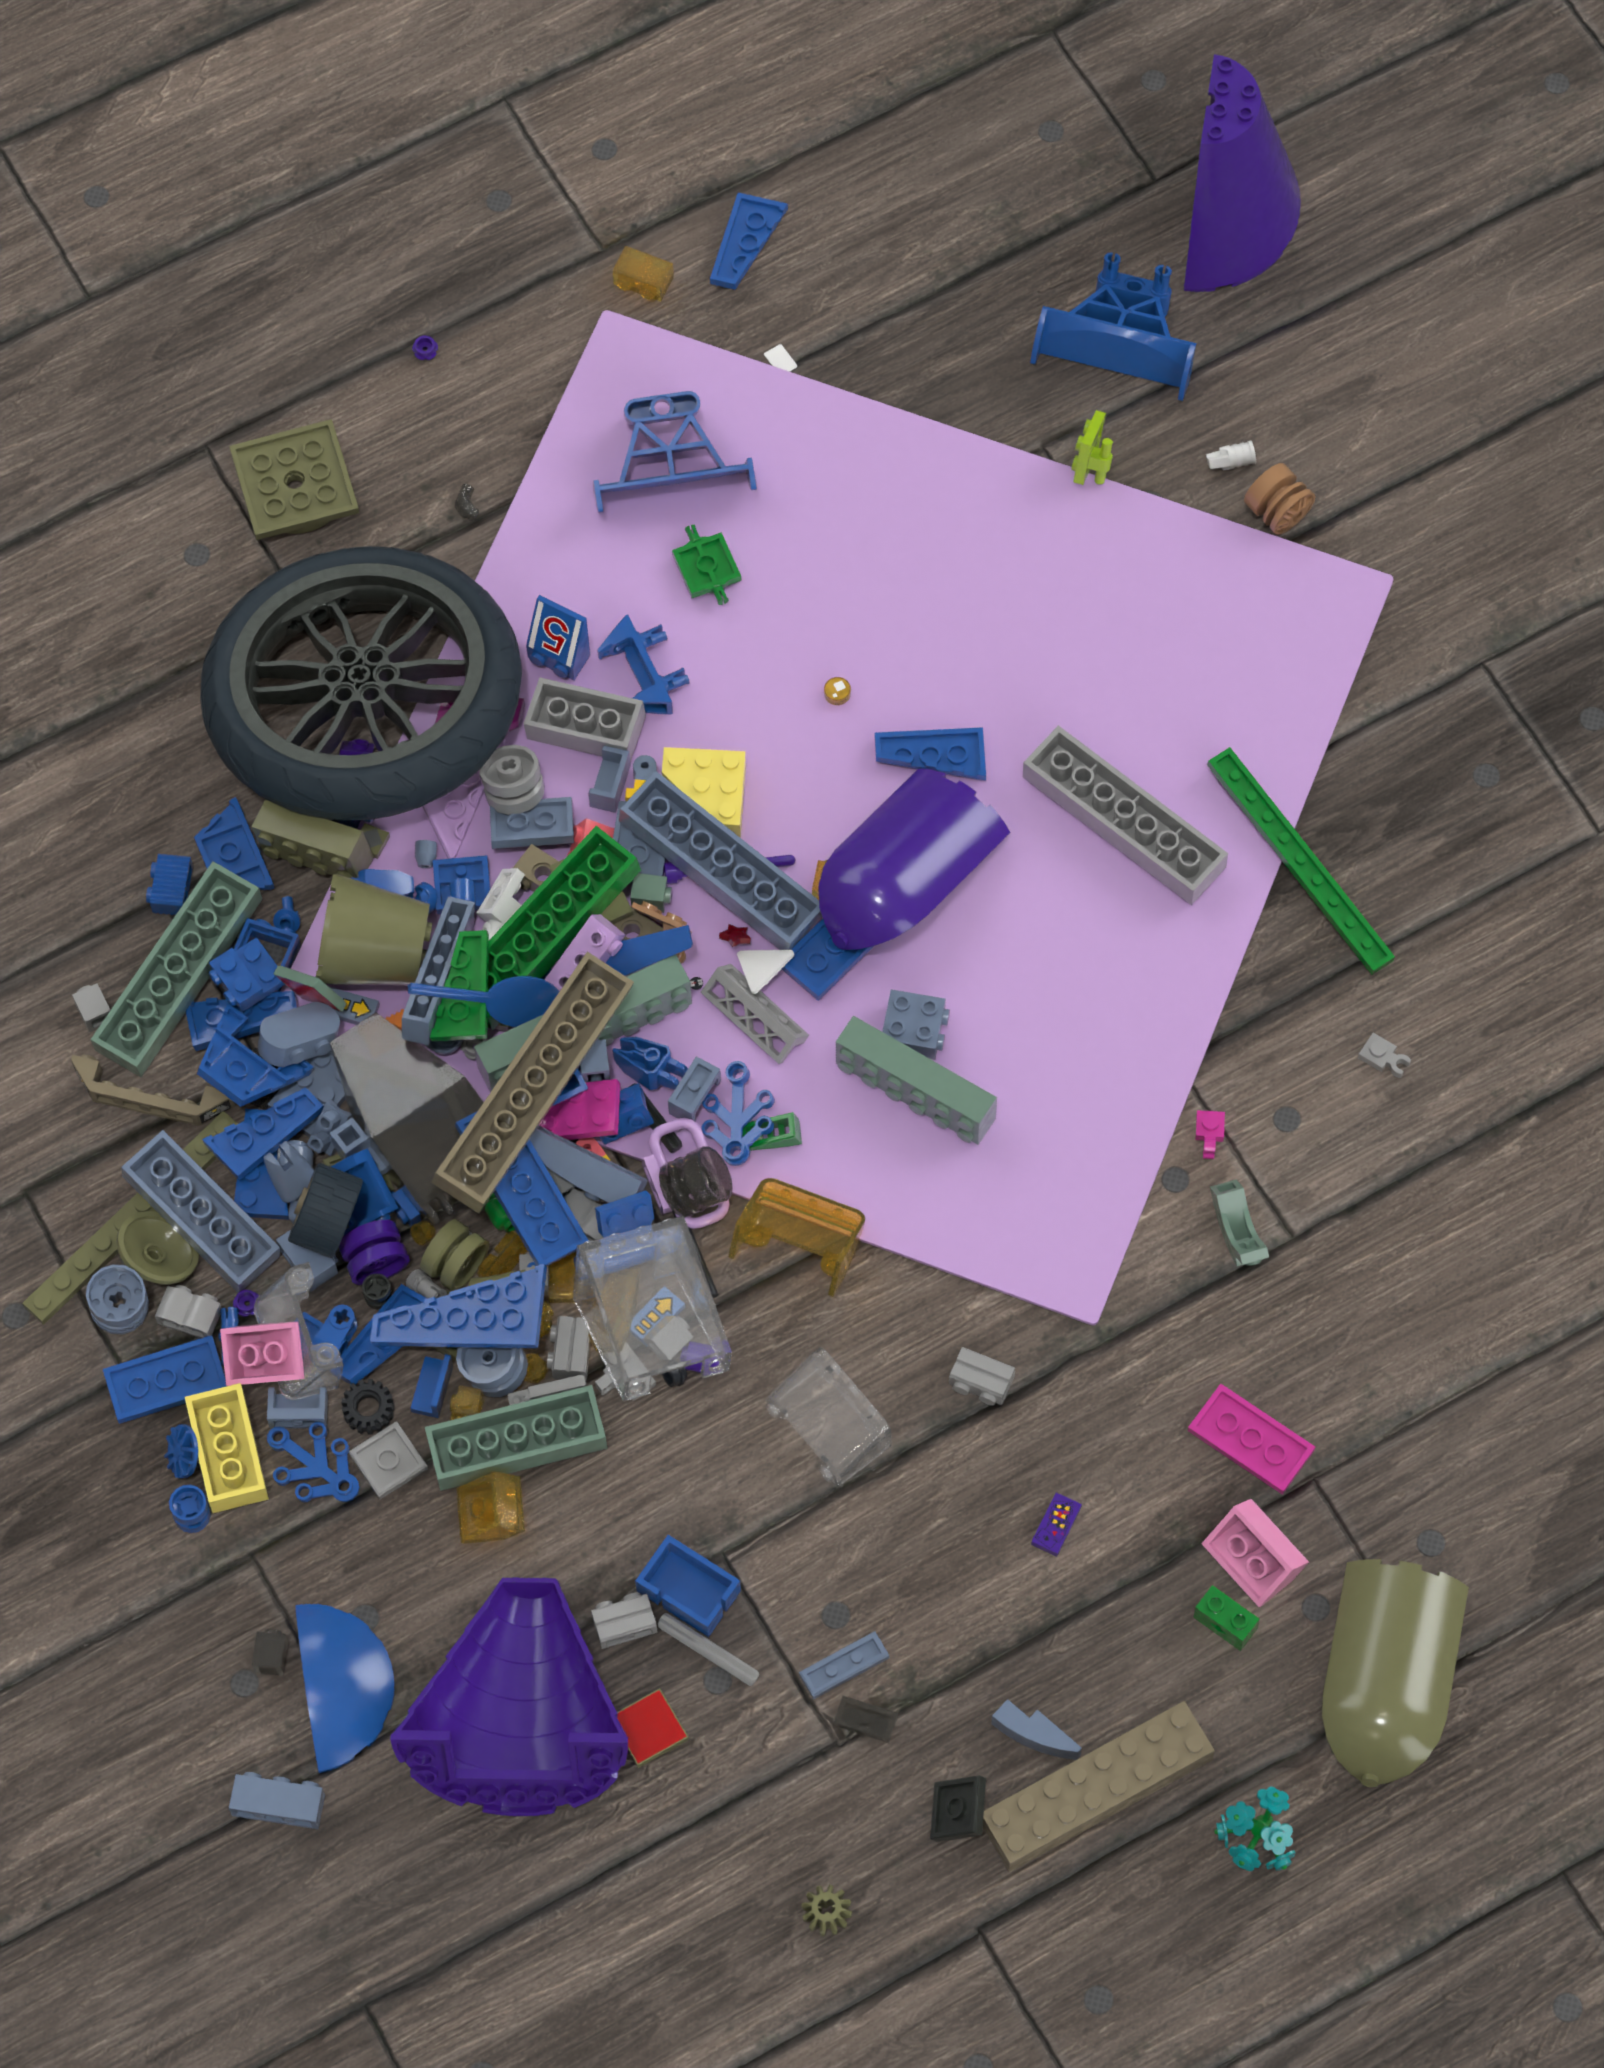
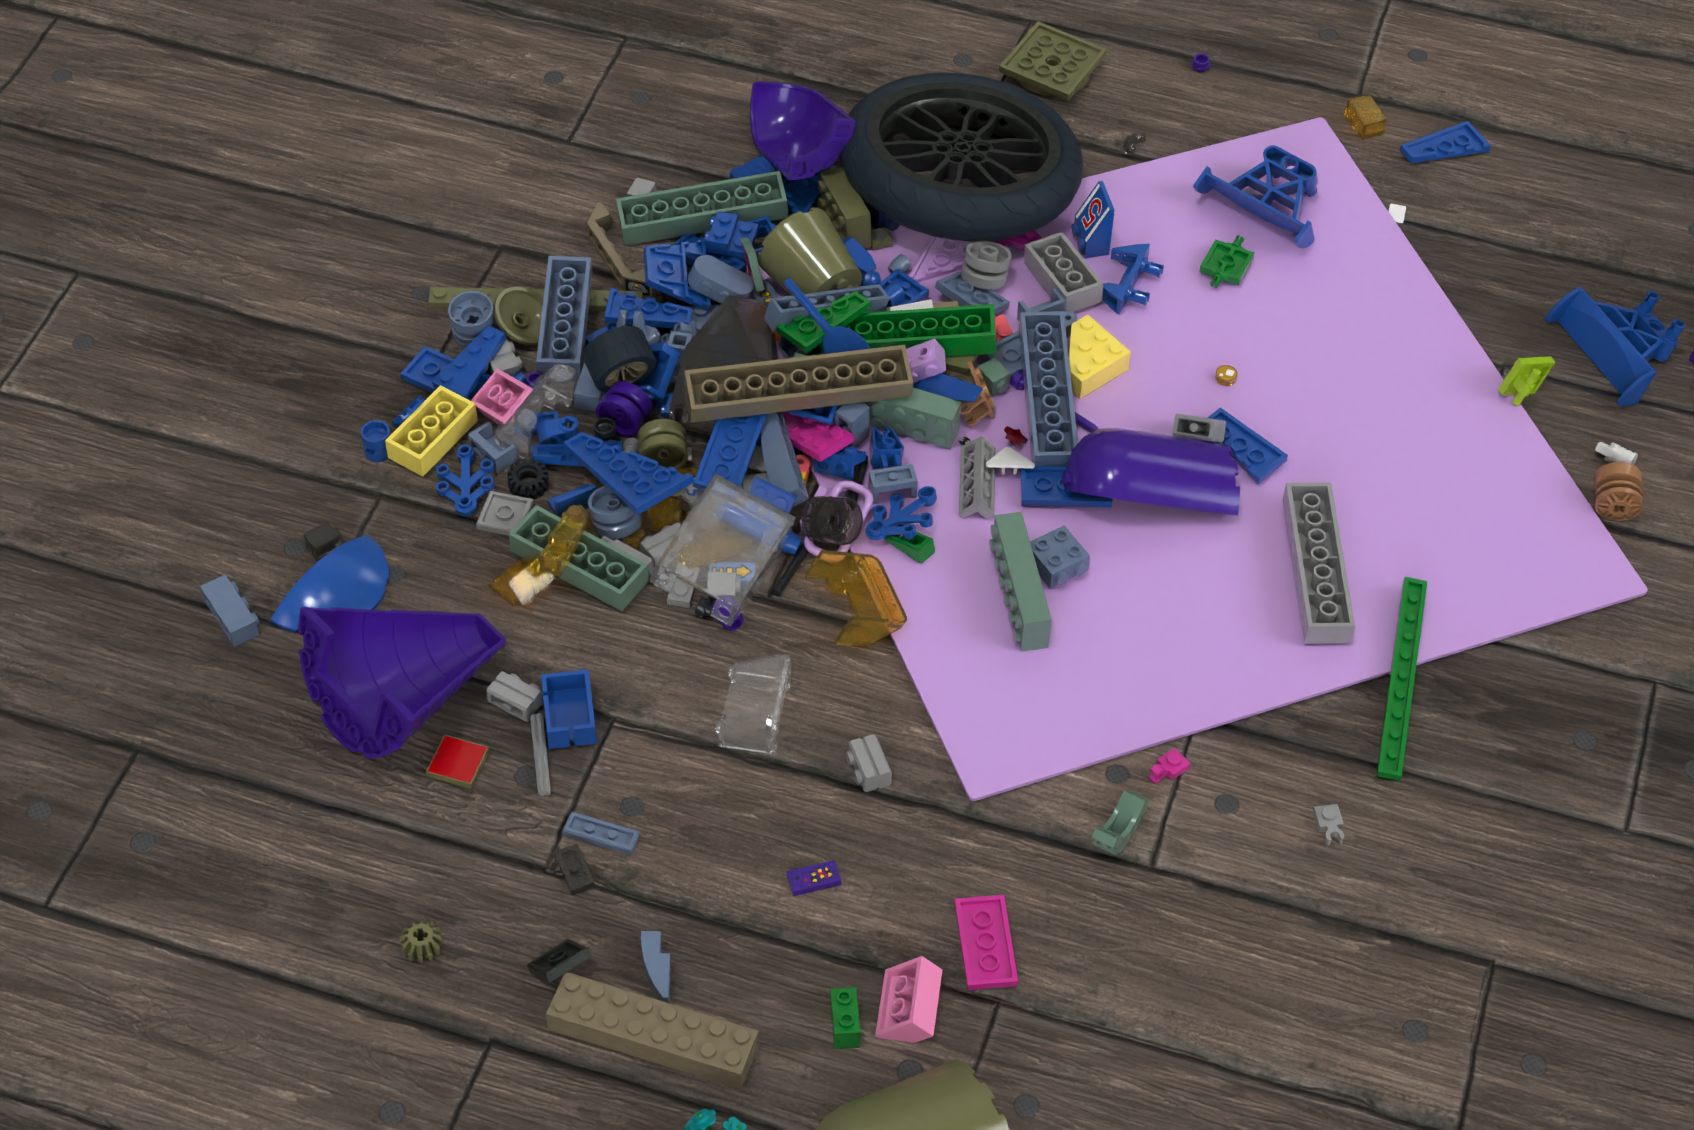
camera: 45 degrees right, 15 degrees down
(173, 797) = (797, 128): none -> dark purple panel
(179, 1351) = (465, 370): none -> blue wing
(503, 1442) = (561, 545): none -> clear yellow slope
(887, 774) = (1199, 428): none -> light grey brick

